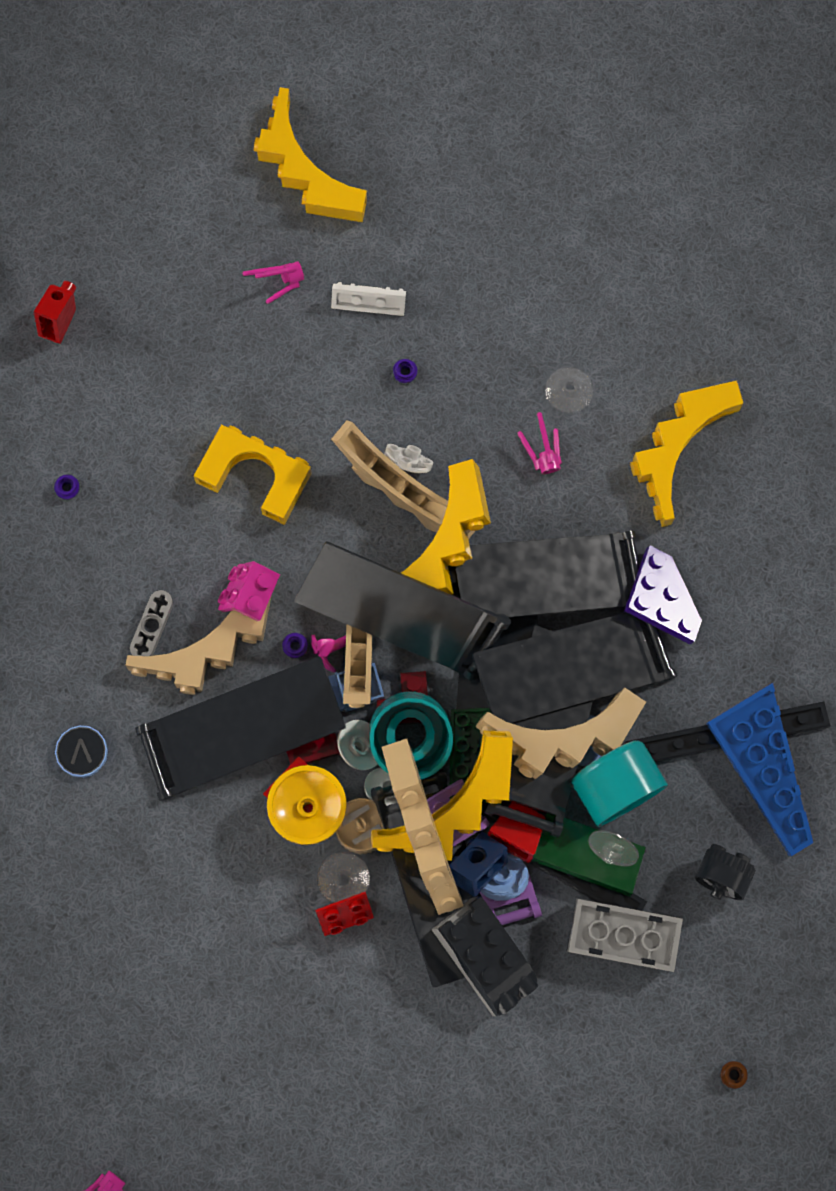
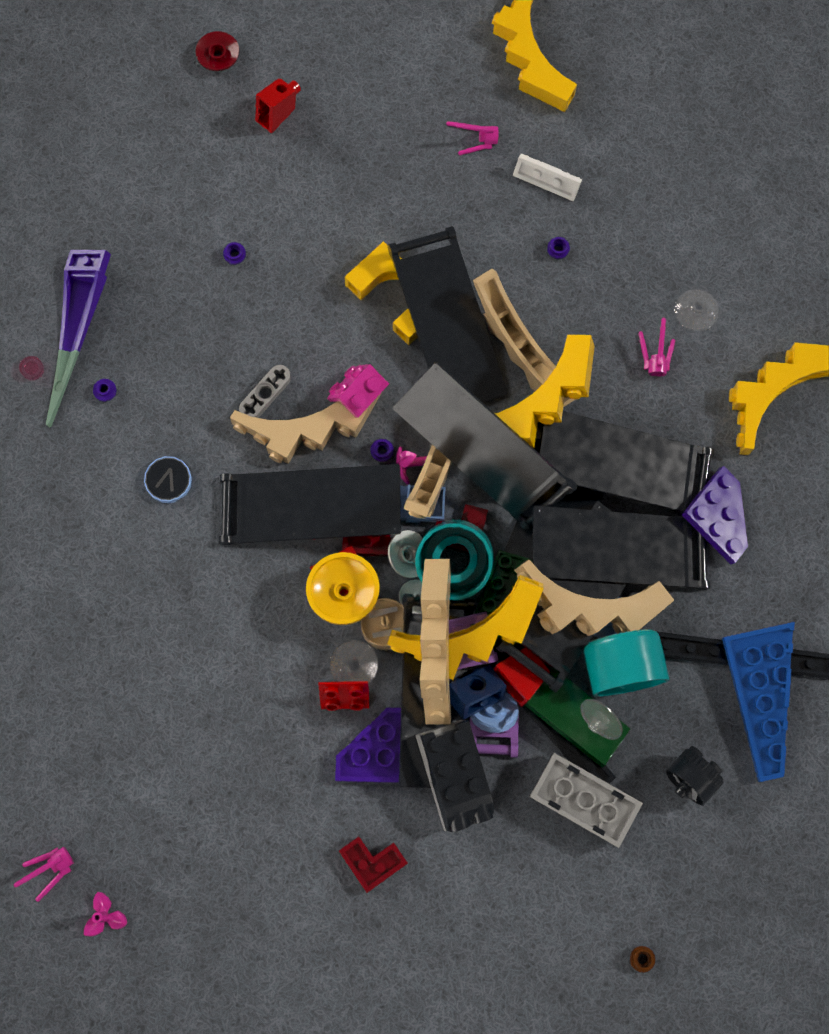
camera: 20 degrees right, 0 degrees up
(316, 481) = (448, 313): none -> black flag
(394, 962) = (373, 752): none -> dark purple plate
(408, 458) = (535, 323): white dish -> none
(434, 1081) = (369, 869): none -> dark red plate

